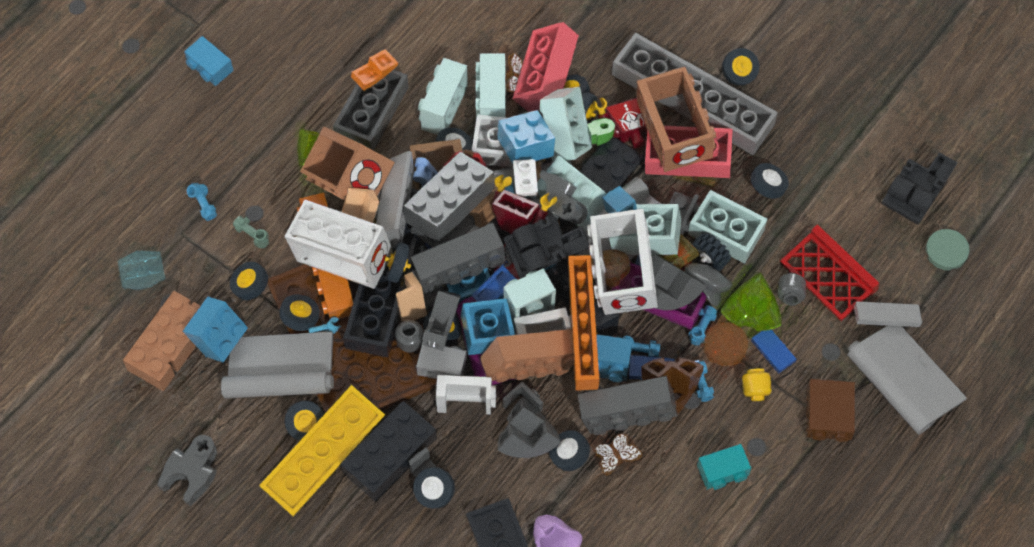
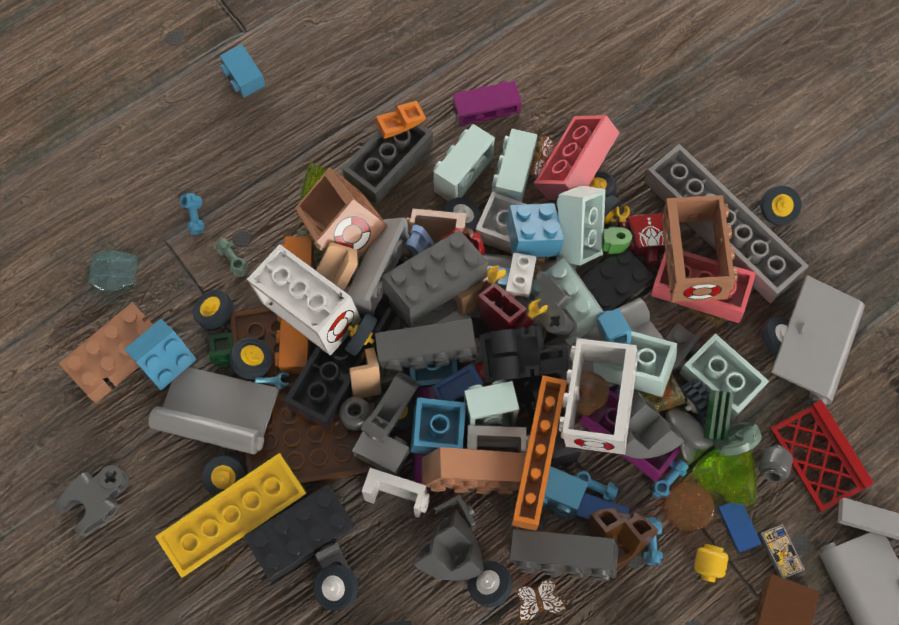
camera: 15 degrees right, 5 degrees up
(267, 313) = (220, 348): none -> dark green bracket
(448, 37) = (486, 103): none -> magenta brick
(731, 257) = (721, 414): none -> dark green tile
(752, 275) = (740, 439): none -> sand green tile
(802, 173) = (818, 339): none -> light grey door
(815, 361) = (781, 551): none -> tile

